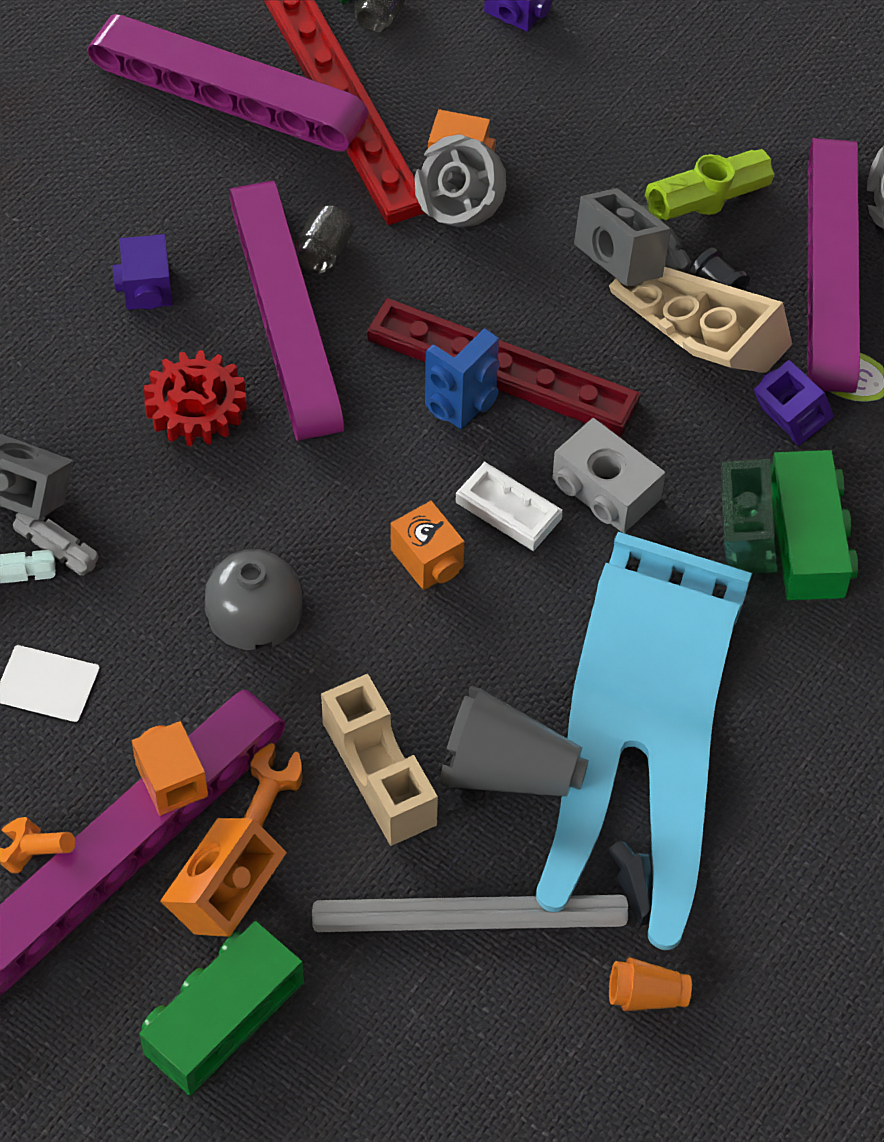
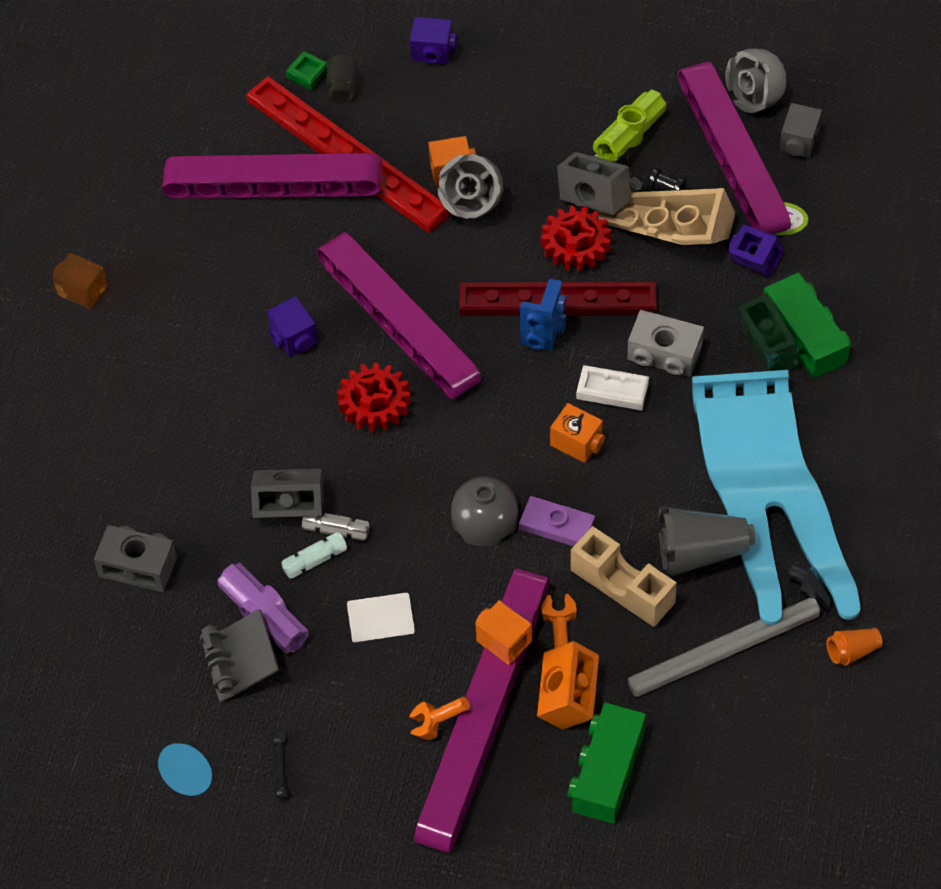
camera: 20 degrees left, 0 degrees up
(323, 238) = (397, 257): clear smoke brick -> none
(338, 648) = (555, 521): none -> medium lavender plate
(565, 298) = (576, 238): none -> red gear

